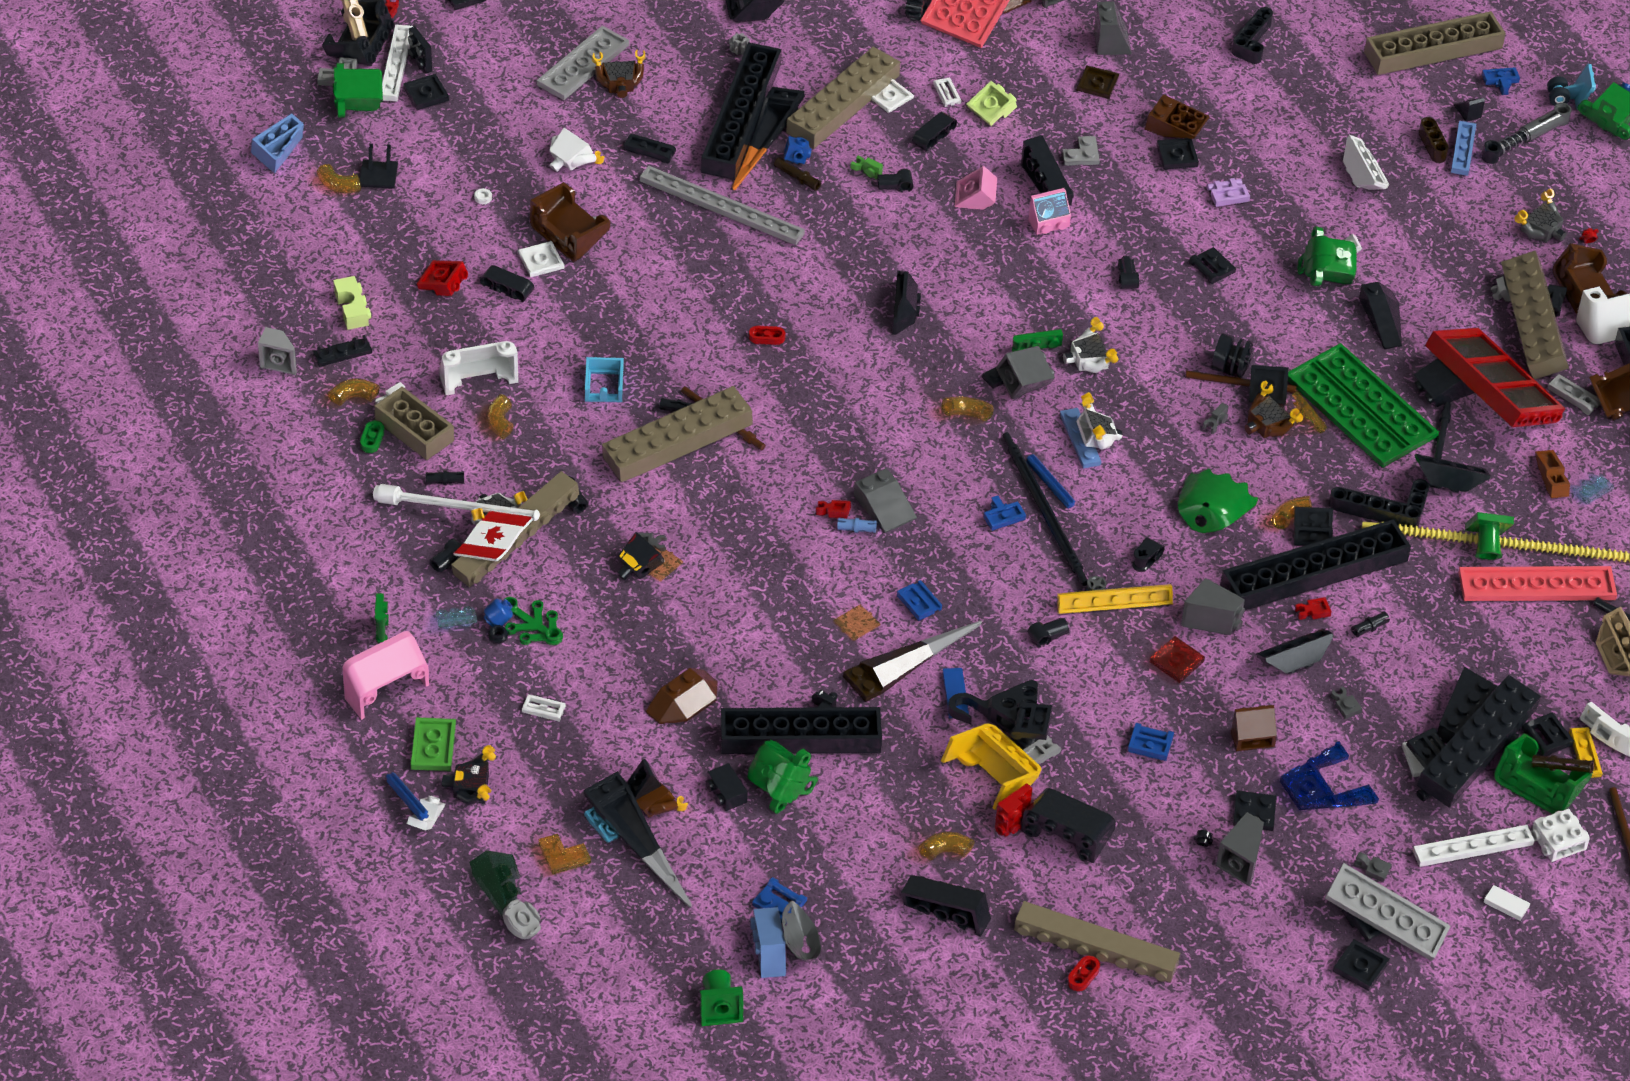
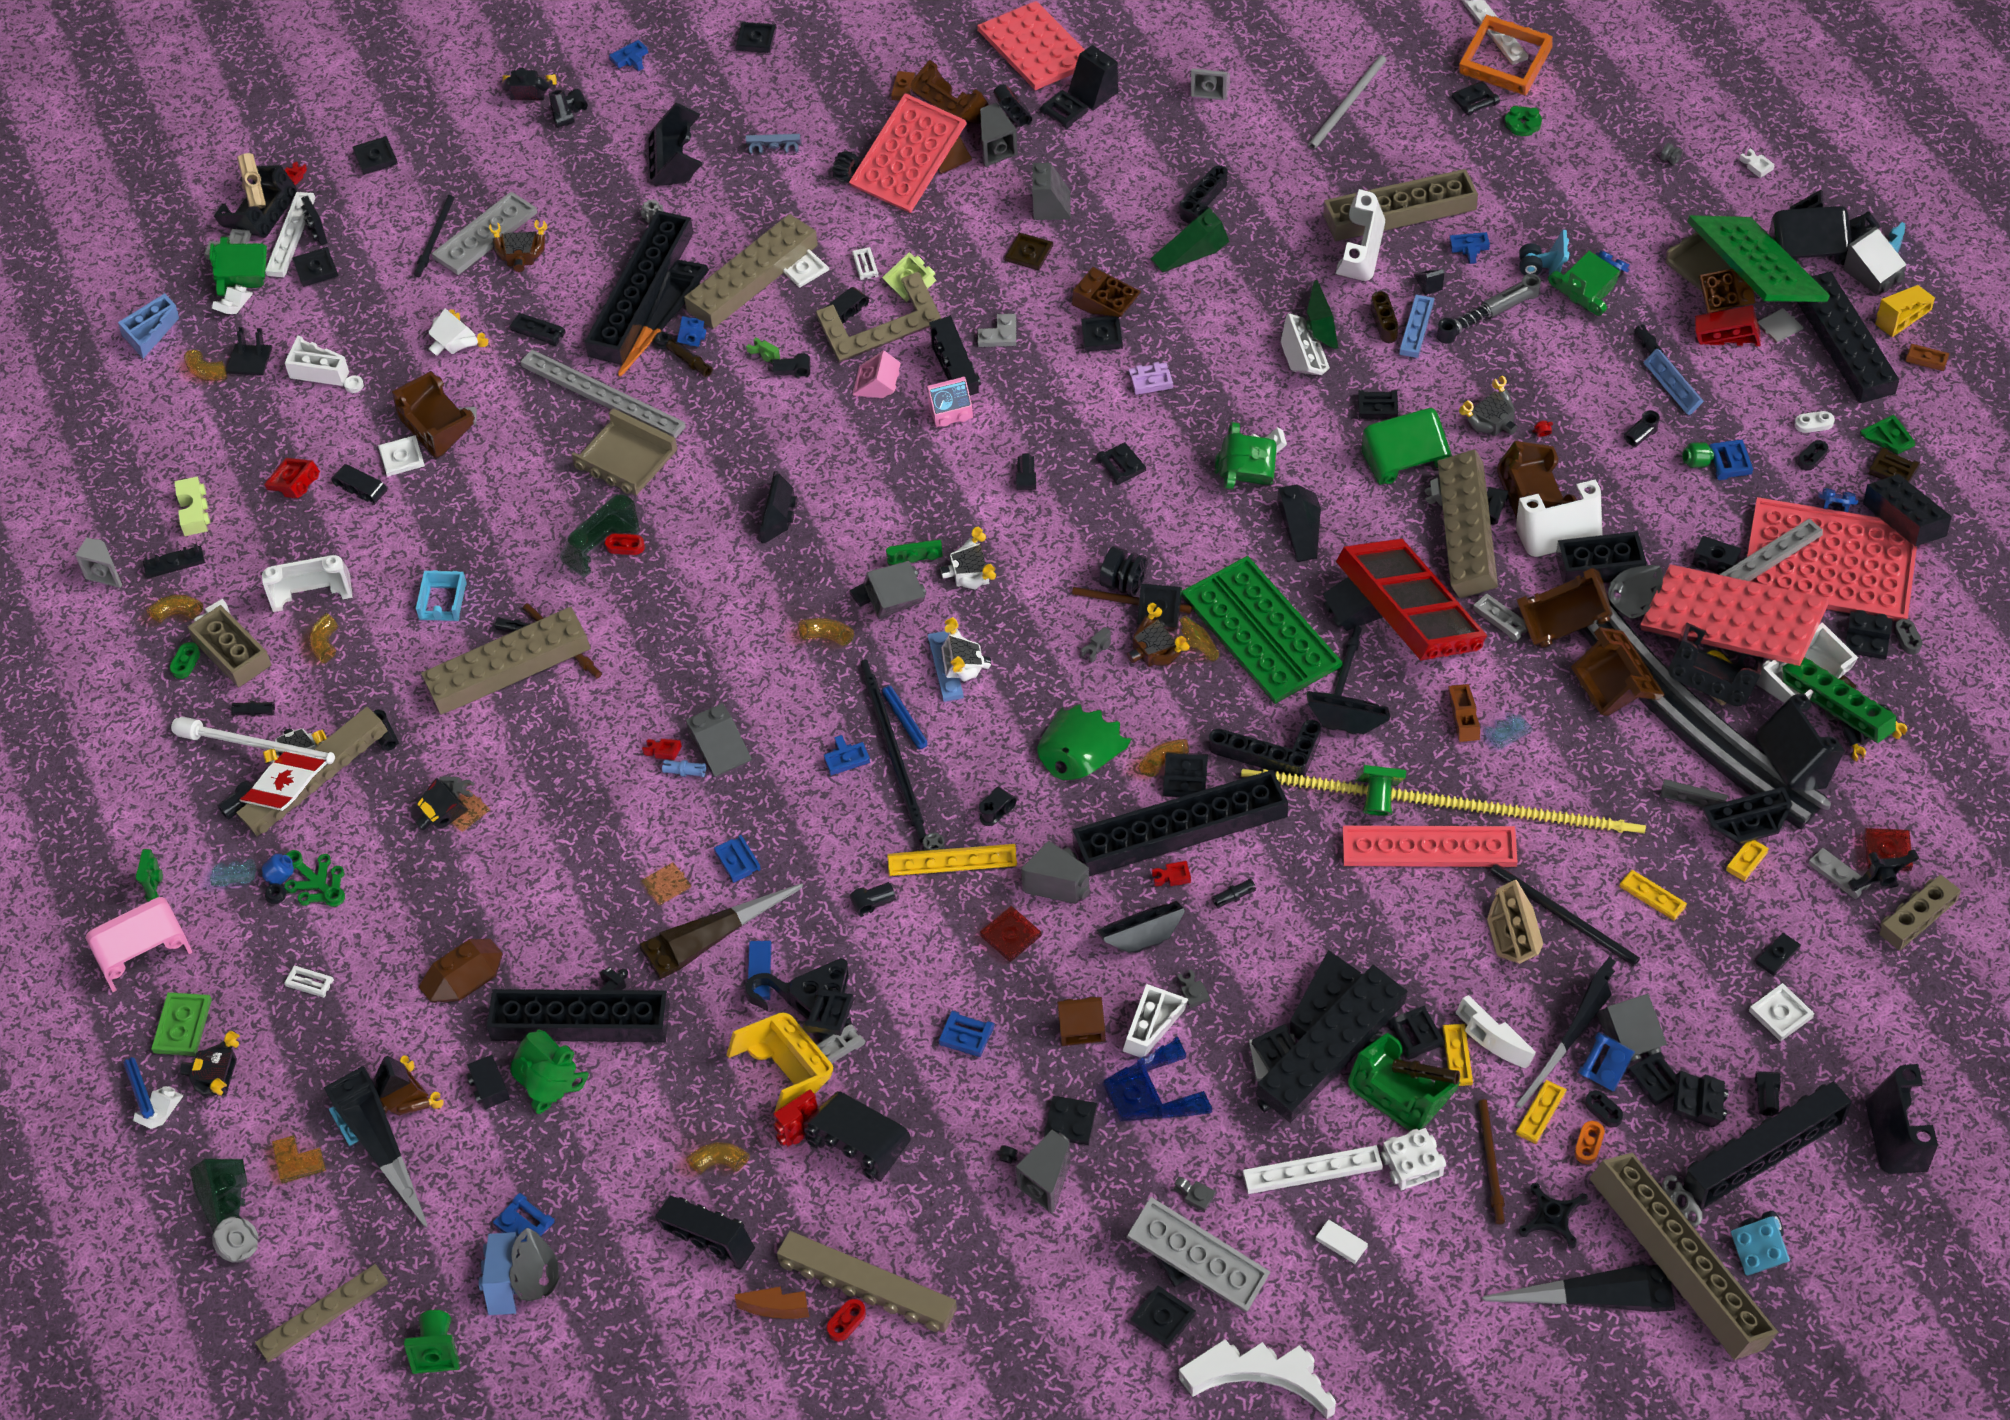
camera: 10 degrees right, 5 degrees up
(353, 120) = (234, 300): none -> white slope
(447, 178) = (315, 364): none -> white wedge
(528, 85) = (423, 259): none -> black bar
(610, 978) = (321, 1313): none -> dark tan plate
(754, 256) = (626, 453): none -> dark tan panel
(757, 311) = (615, 516): none -> clear green windscreen
(769, 158) = (661, 340): none -> black plate
(942, 164) = (848, 347): none -> dark tan plate
(1017, 961) = (773, 1303): none -> dark orange slope
(1253, 73) = (1197, 240): none -> dark green wedge
(1316, 725) = (1153, 1018): none -> white wedge
(1379, 139) = (1320, 317): none -> dark green wedge
(1410, 47) = (1368, 213): none -> white windscreen
(1438, 215) = (1378, 404): none -> black plate
(1468, 247) = (1404, 444): none -> green windscreen
(1480, 1004) = (1225, 1365): none -> white arch

